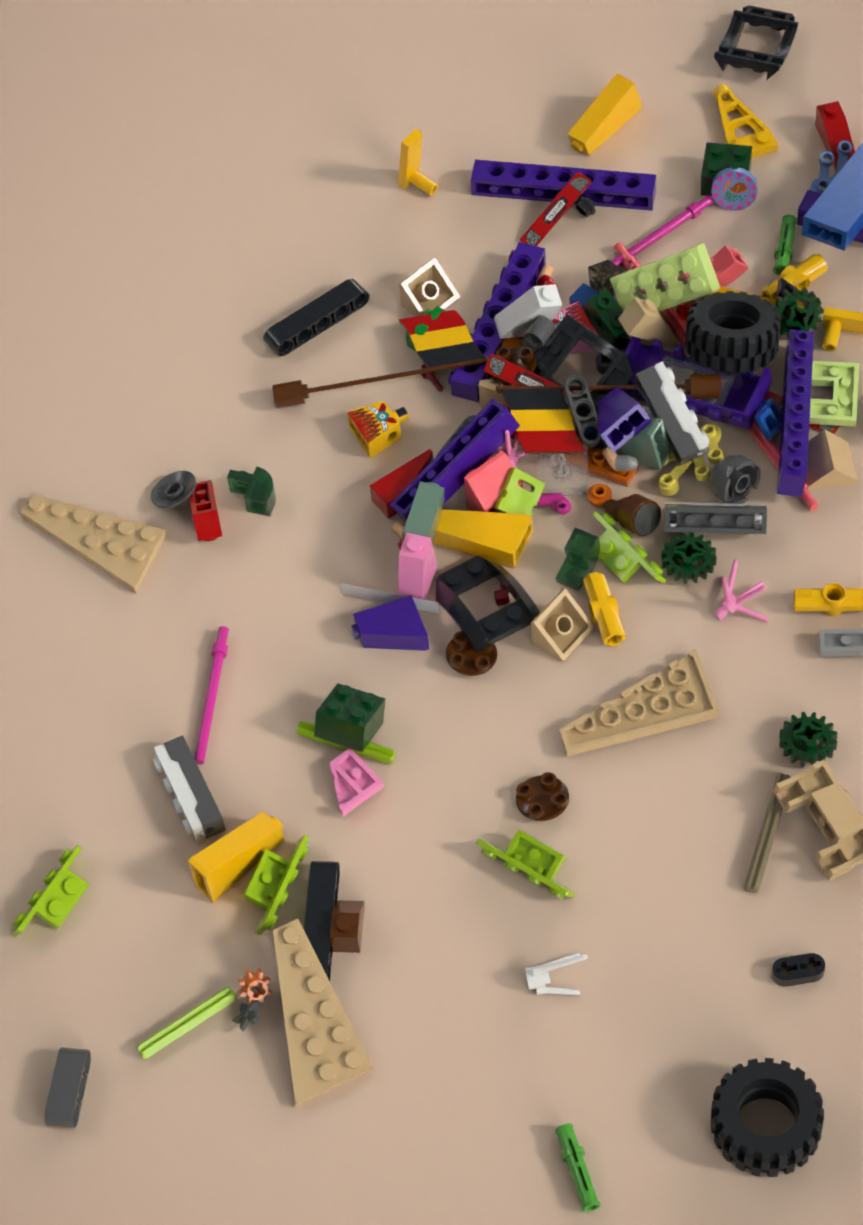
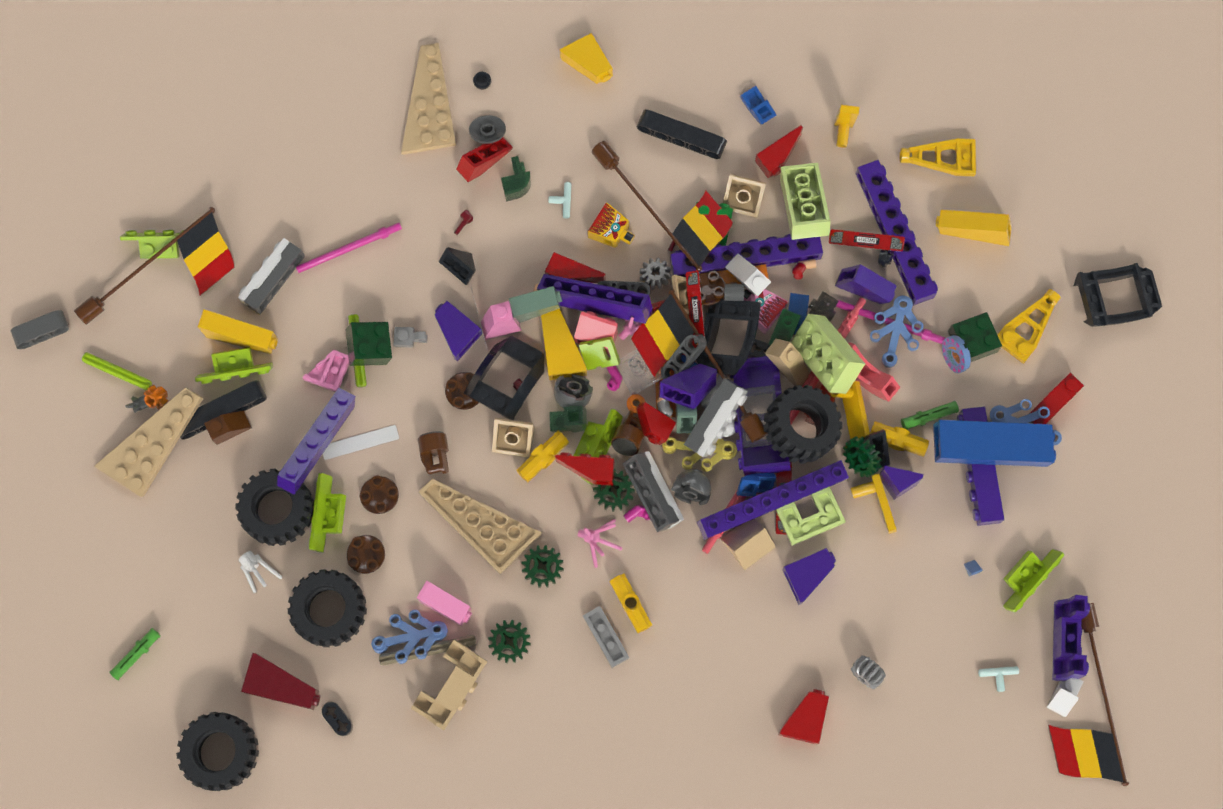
camera: 55 degrees right, 20 degrees up
(107, 848) = (202, 252): none -> flag
(109, 472) = (482, 80): none -> black plate
(165, 361) = (587, 59): none -> yellow slope
(262, 559) = (467, 218): none -> dark red hand
(310, 458) = (565, 200): none -> light aqua piece
(314, 592) = (459, 264): none -> black slope
(341, 240) = (758, 107): none -> blue slope
(368, 680) = (406, 337): none -> light grey plate
(404, 244) = (776, 155): none -> red slope
(438, 817) = (316, 441): none -> brick
(458, 407) = (655, 267): none -> light grey gear
(461, 793) = (361, 442): none -> white sticker
(477, 235) = (805, 201): none -> yellowish green brick
(481, 879) = (276, 533): none -> black tyre
(517, 94) = (965, 156): none -> yellow plate
(519, 708) = (431, 445): none -> reddish brown piece
(547, 541) = (572, 391): none -> dark grey cylinder
(601, 232) = (866, 284): none -> dark purple slope
(607, 844) = (365, 554): none -> reddish brown dish
(636, 478) = (654, 424): none -> red slope
(656, 554) = (593, 469): none -> red slope
(660, 877) = (308, 590): none -> black tyre
(669, 227) = (897, 327): none -> medium blue plant
(717, 1013) = (276, 684): none -> dark red slope
(721, 783) = (444, 603): none -> bright pink slope
(728, 546) = (637, 510): none -> dark pink arm
(736, 666) = (535, 571): none -> dark green gear
(740, 839) = (412, 636): none -> medium blue plant
(843, 290) = (898, 480): none -> dark purple slope

